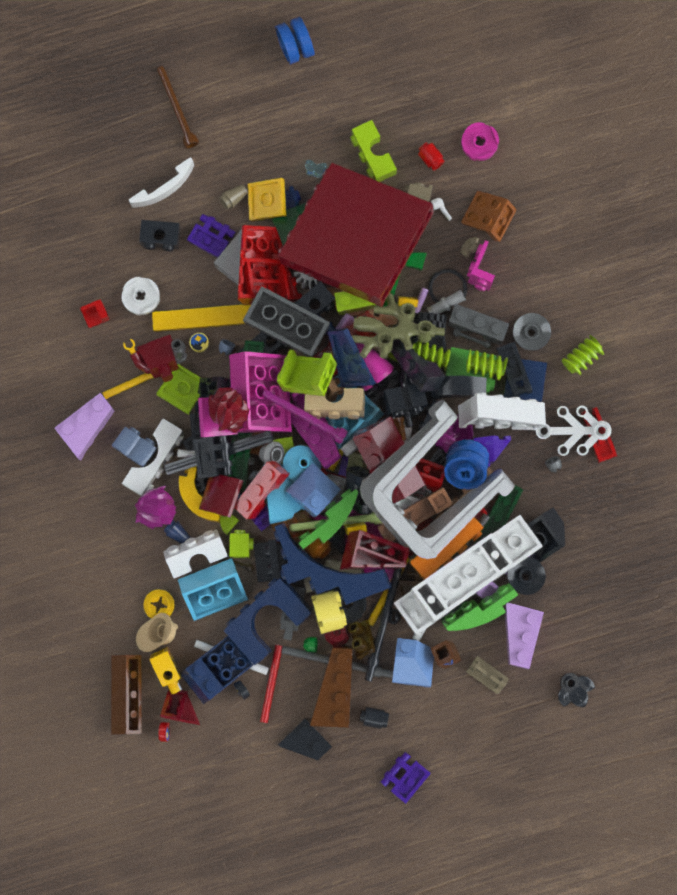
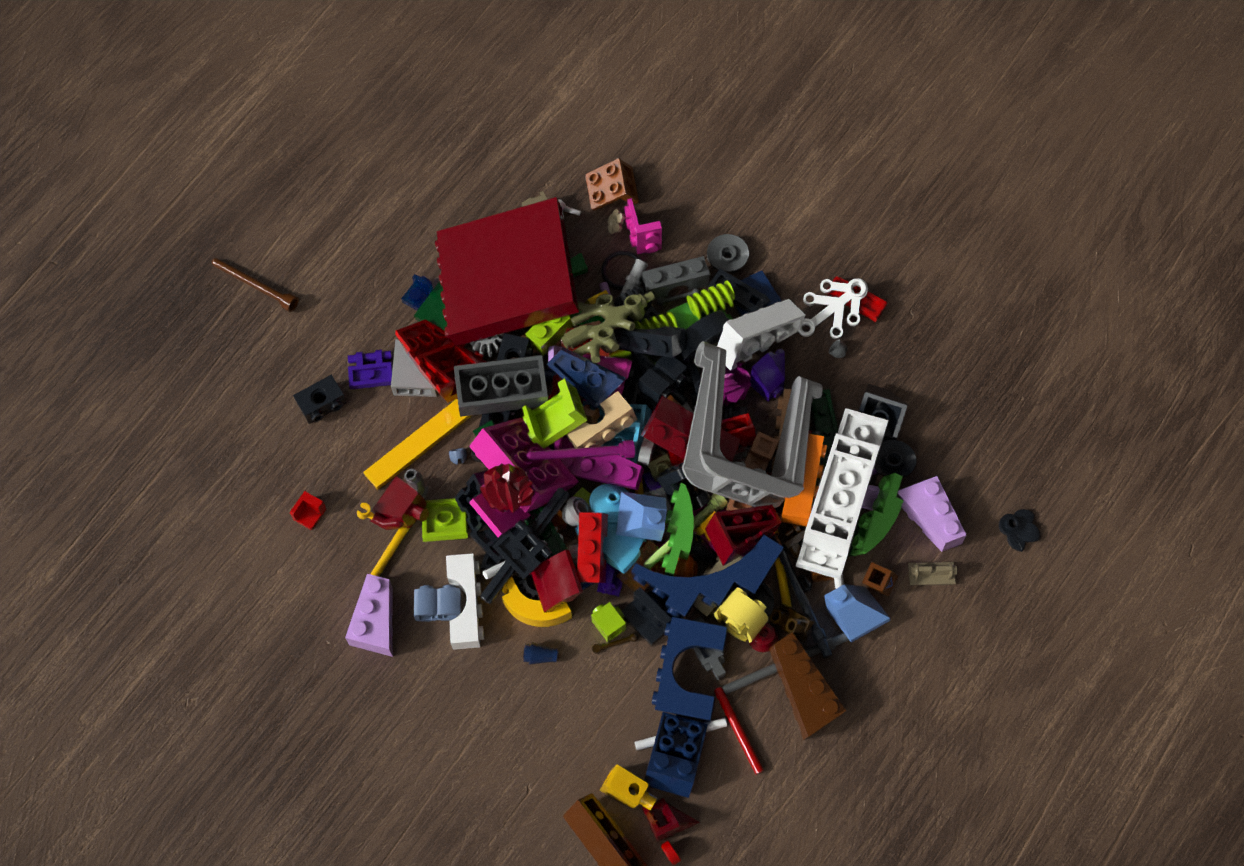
camera: 35 degrees left, 15 degrees down
(142, 285) = (337, 454): white plate -> none
(143, 199) = (282, 378): white slope -> none
(154, 596) = (562, 731): yellow gear -> none
(155, 508) = (501, 643): magenta hair -> none
(156, 632) = (590, 761): tan piece -> none
(199, 342) = (429, 469): tile -> none
(206, 544) = (558, 672): white arch -> none
(212, 589) = (614, 681): medium azure slope -> none
(228, 524) = (580, 610): lime tile -> none
(233, 196) = (365, 322): dark tan cone -> none
(241, 689) = (715, 756): black tile -> none
(266, 199) = (399, 303): yellow tile -> none
(294, 40) = (324, 155): blue wheel -> none
(306, 741) = (814, 759): black wing -> none
(310, 644) = (746, 665): green hinge -> none
(314, 169) = (424, 251): clear light blue piece -> none
(374, 717) = (861, 688): black brick -> none
(378, 166) = (450, 196): lime arch -> none
(409, 782) = (942, 723): dark purple plate -> none
(431, 156) = (522, 172): red brick -> none
(466, 464) = (763, 394): blue wheel -> none
(477, 152) = (553, 124): dark pink plate -> none
(582, 355) = (788, 242): lime piece -> none

